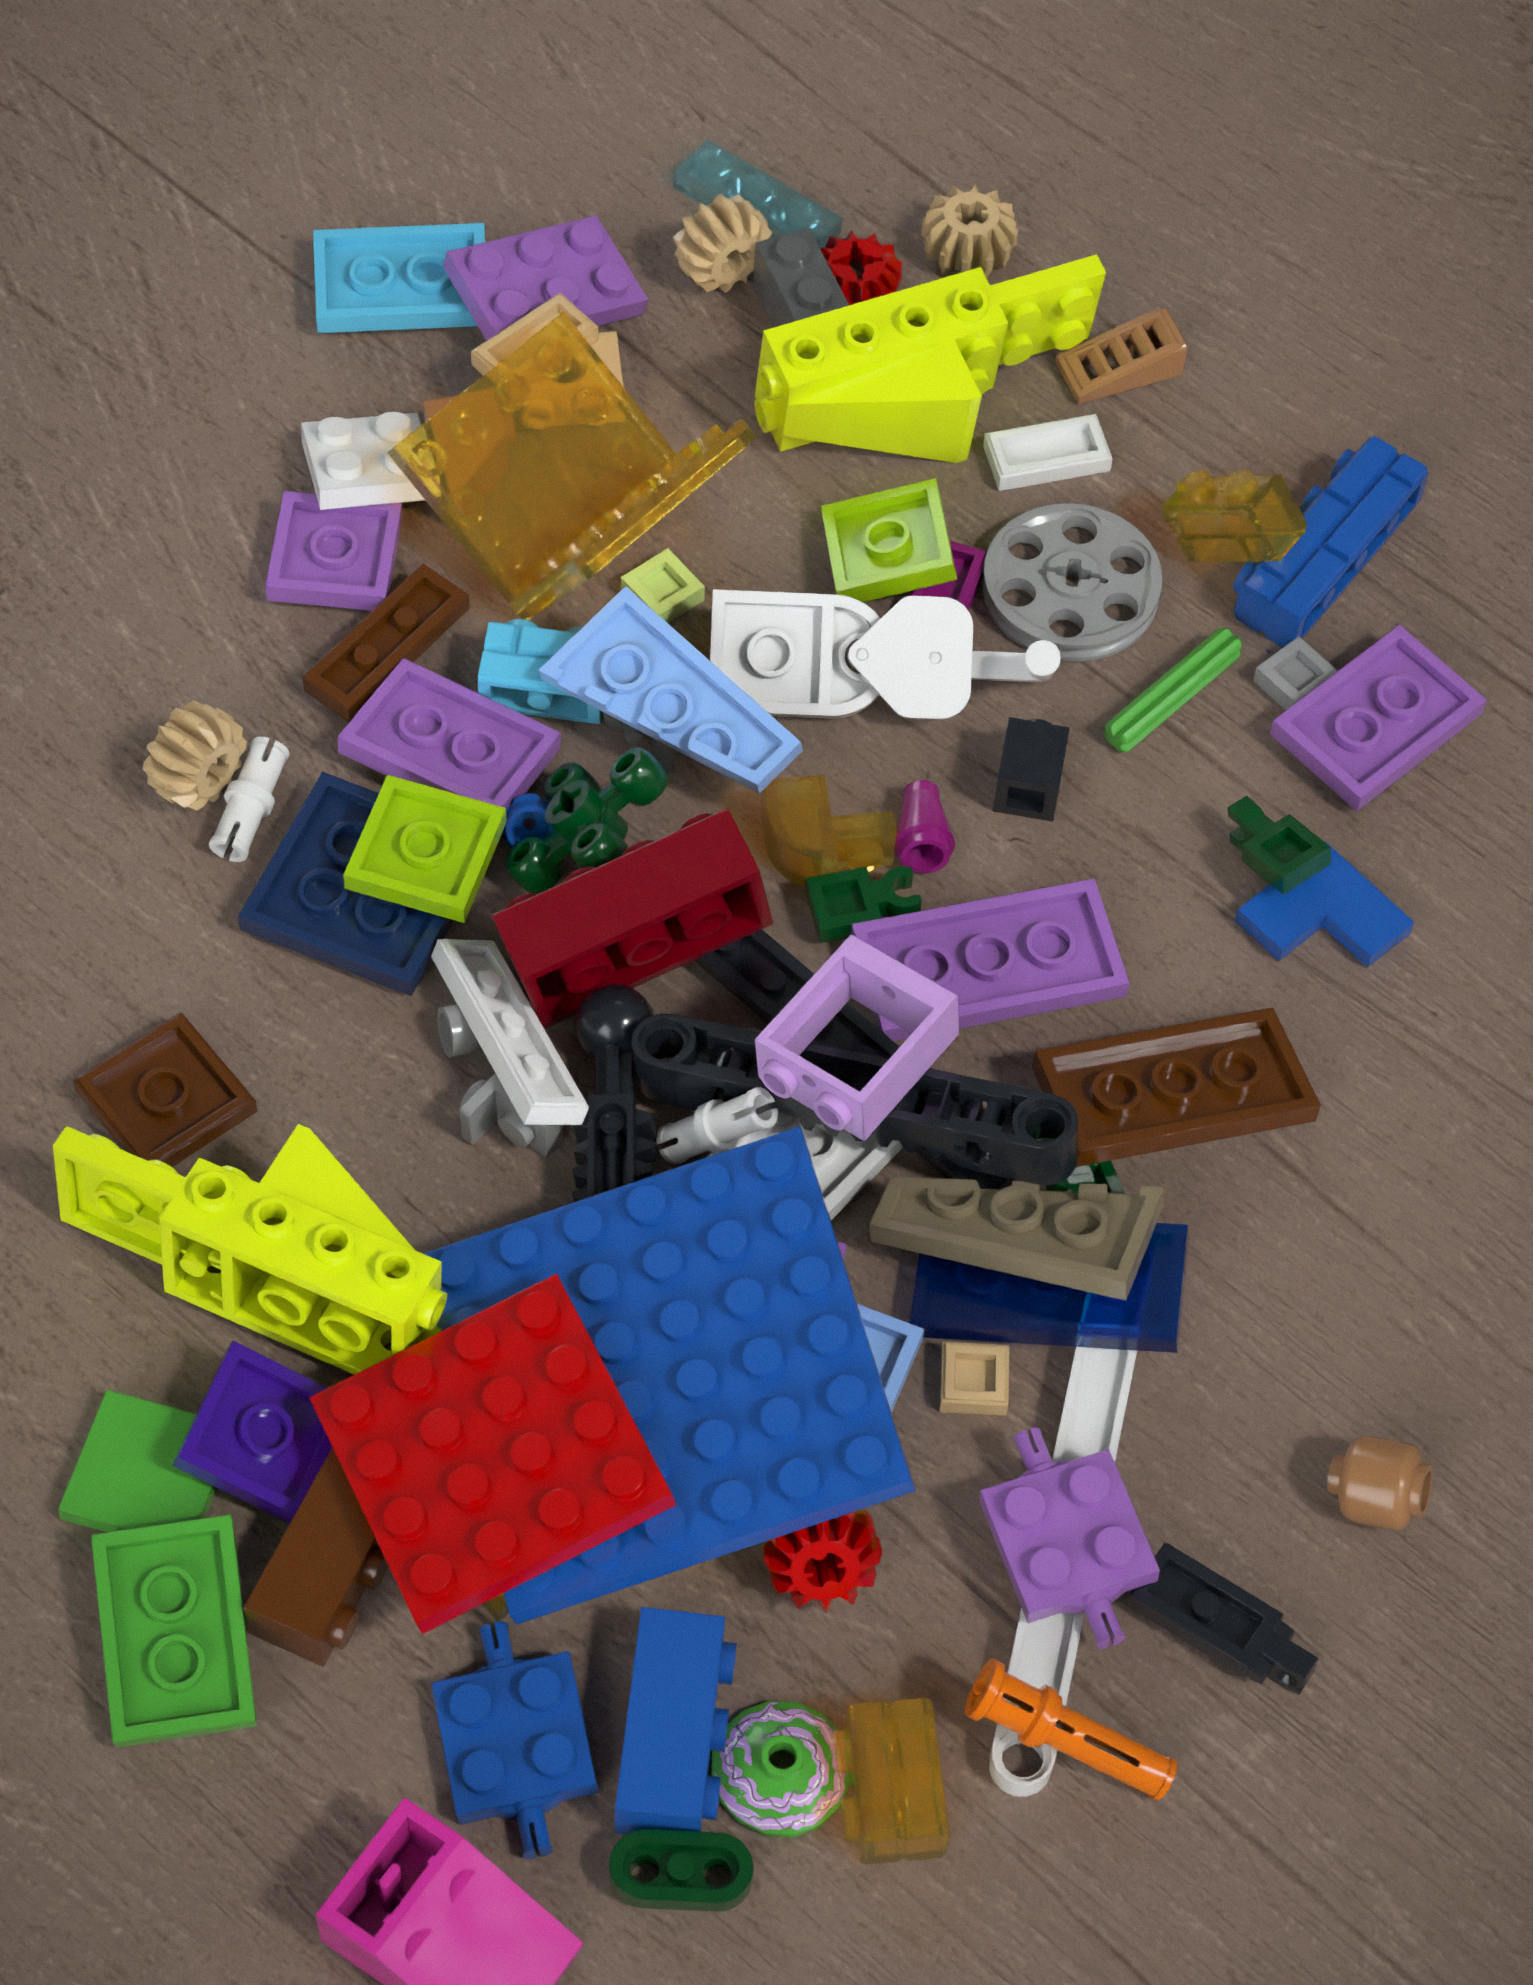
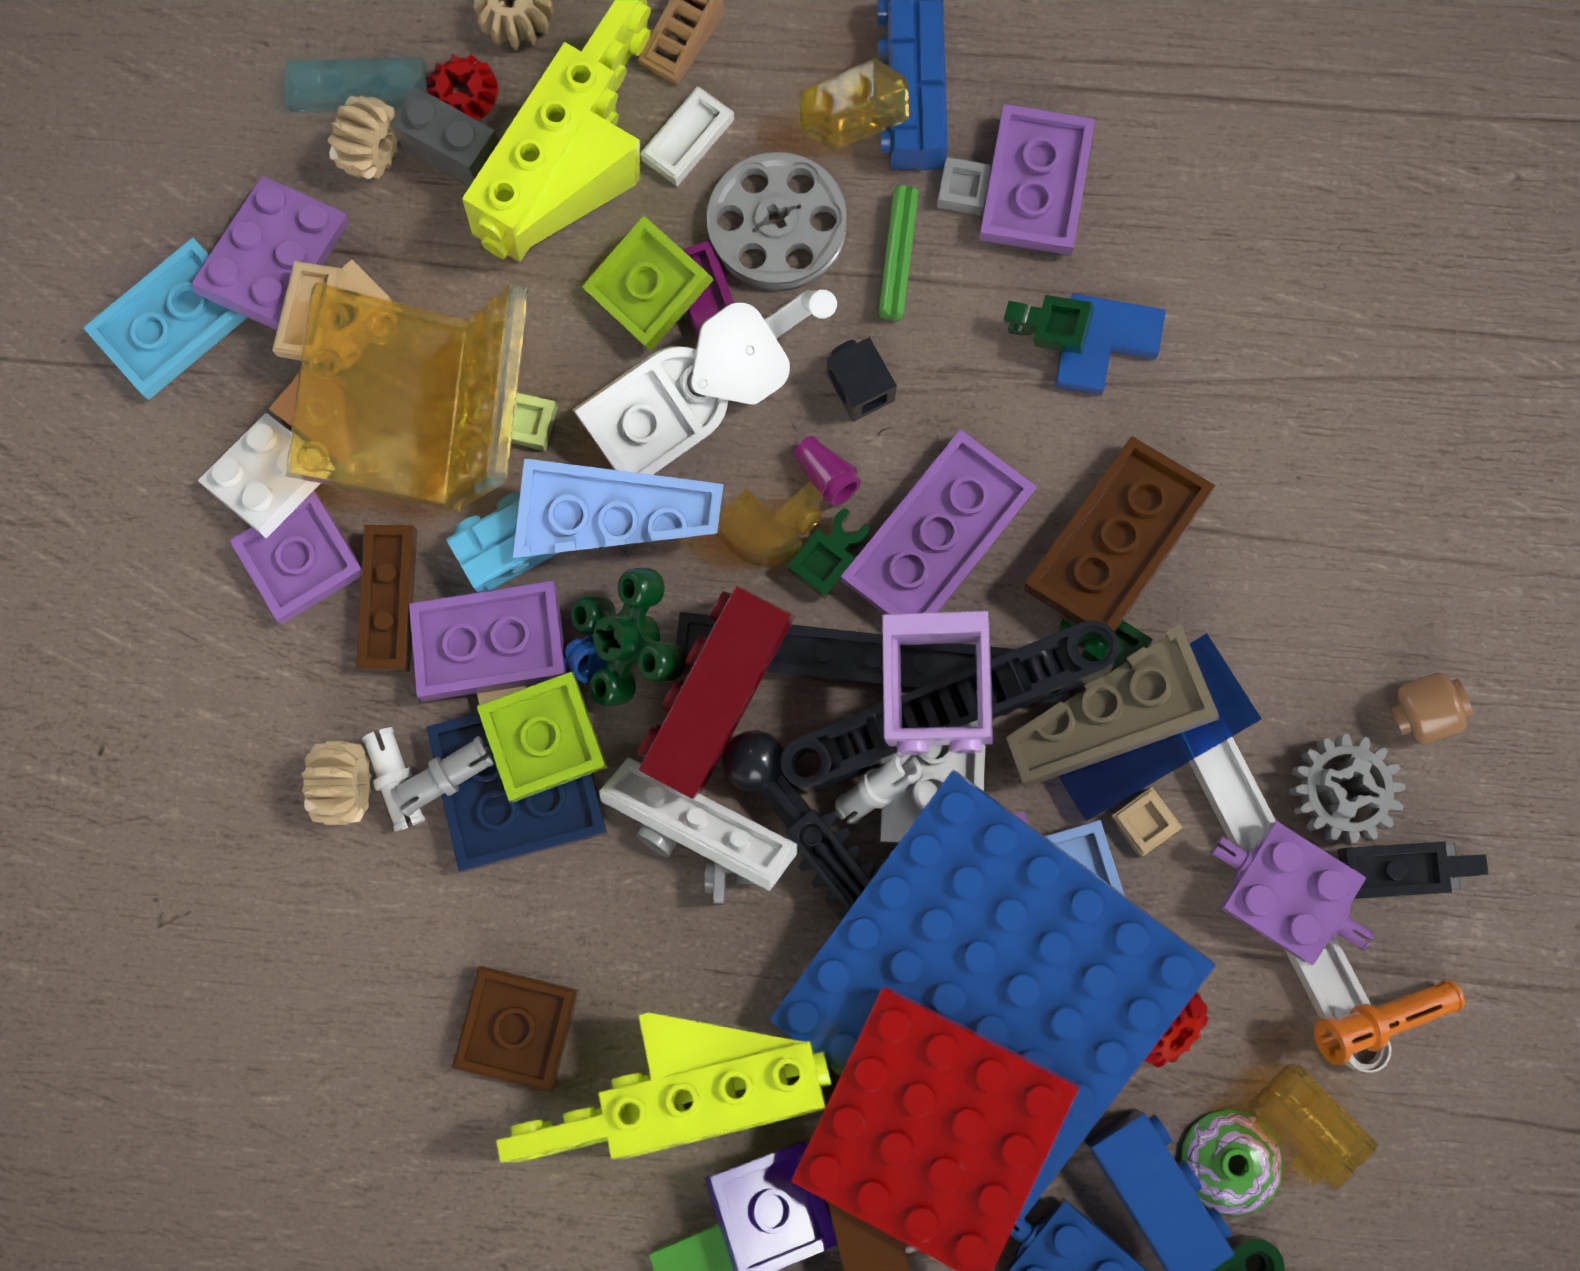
camera: 30 degrees left, 20 degrees up
(299, 815) = (443, 776): none -> light grey pin
(1225, 1466) = (1355, 769): none -> light grey gear

